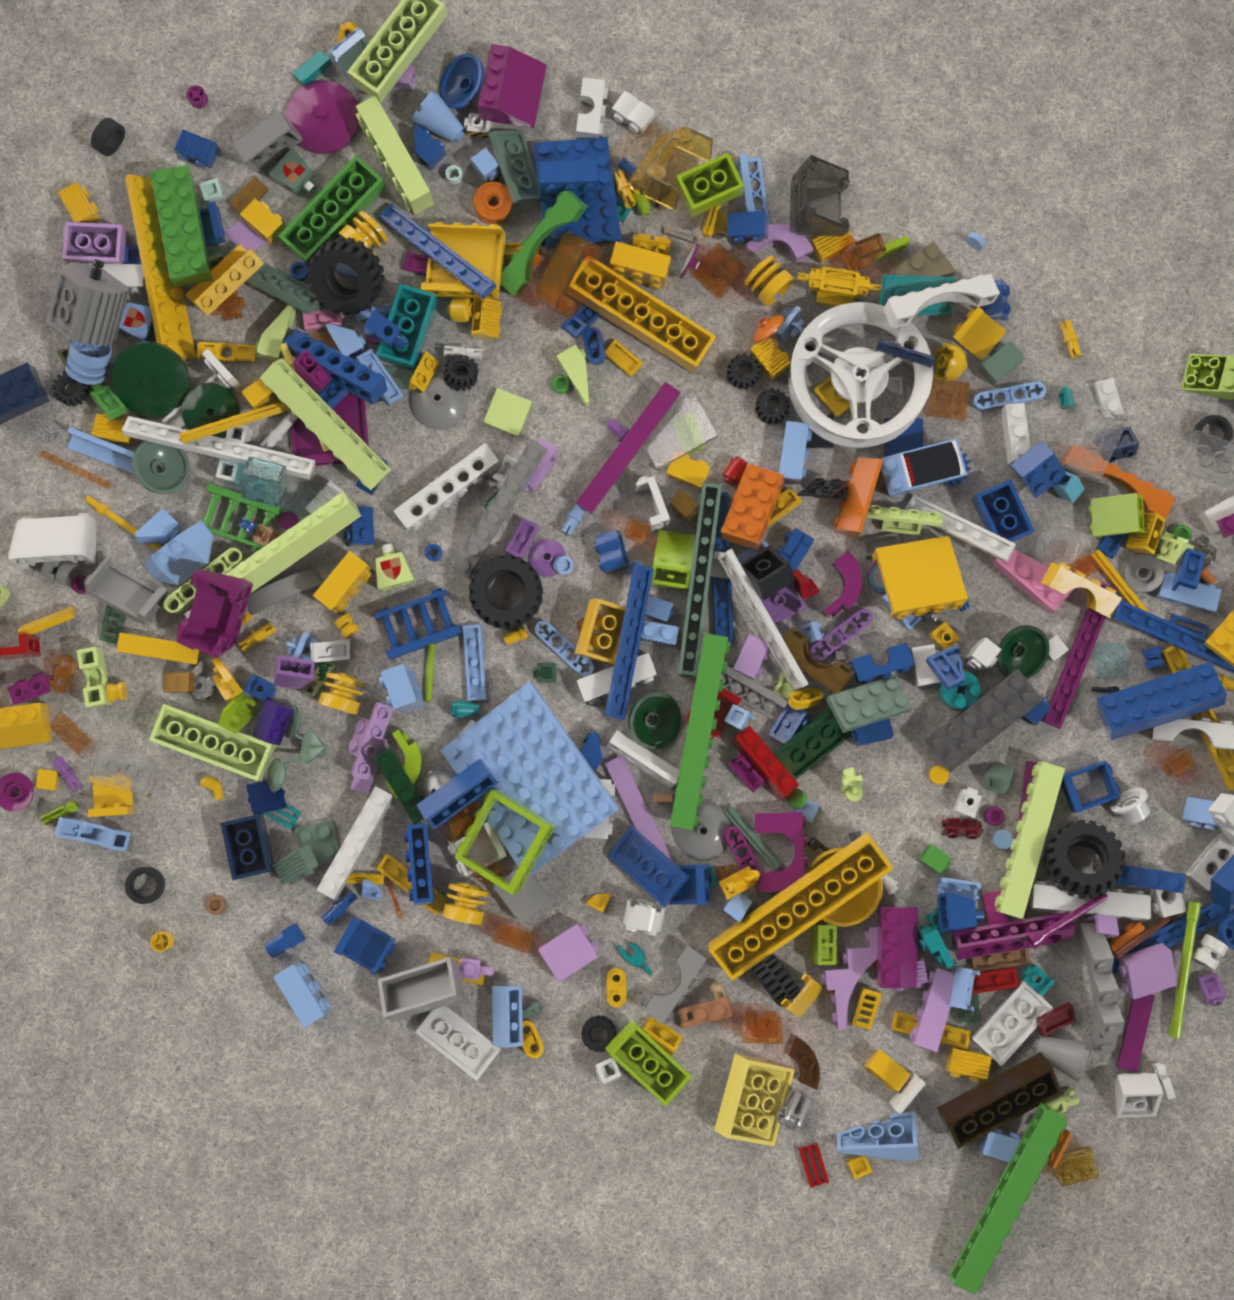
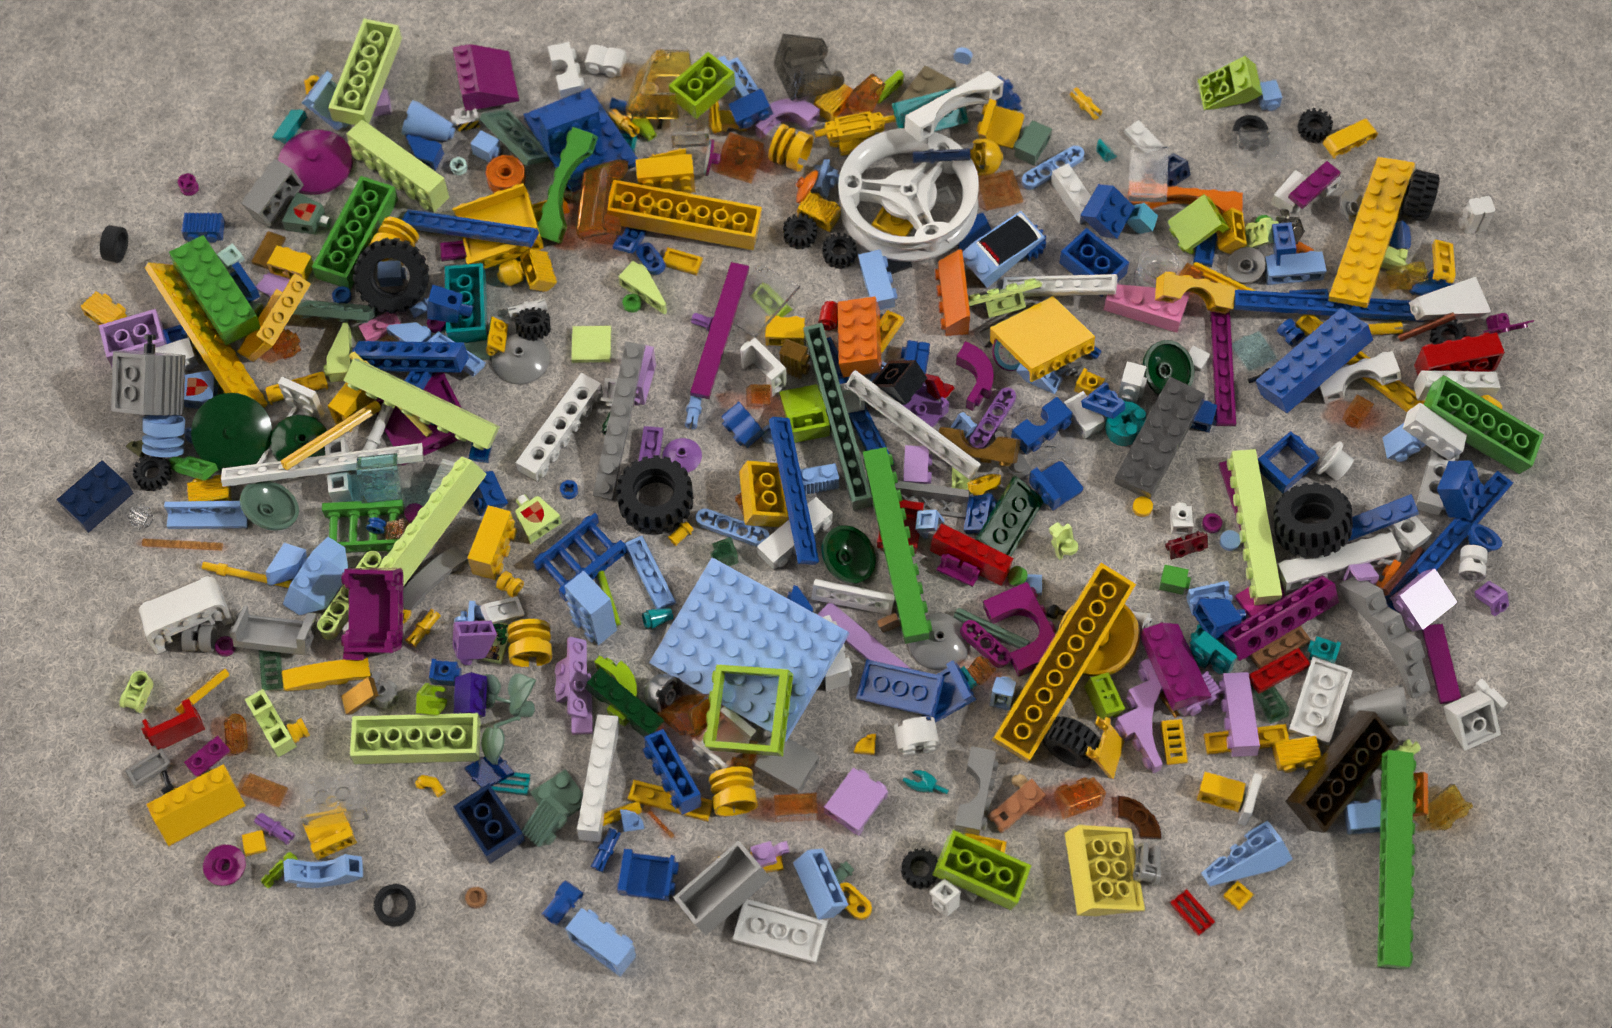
camera: 20 degrees left, 20 degrees down
(157, 941) = (430, 949): yellow wheel -> none
(225, 680) = (408, 673): yellow bracket -> none
(311, 371) = (389, 363): magenta slope -> none
(457, 794) = (683, 683): blue brick -> none
(461, 81) = (437, 85): blue dish -> none
(563, 565) = (700, 454): light blue tile -> none
(616, 987) = (918, 818): yellow plate -> none
(660, 610) = (810, 456): medium blue brick -> none
(739, 882) = (996, 666): yellow hinge -> none
(825, 488) = (921, 299): black hinge -> none
(868, 703) = (1046, 460): sand green plate -> none
(963, 988) = (1256, 679): light blue hinge -> none
(999, 778) = (1200, 486): sand green panel -> none
(1036, 938) = (1302, 603): magenta piece -> none
(1056, 1019) = (1360, 679): dark red tile -> none
(1177, 1019) = (1474, 637): lime piece -> none

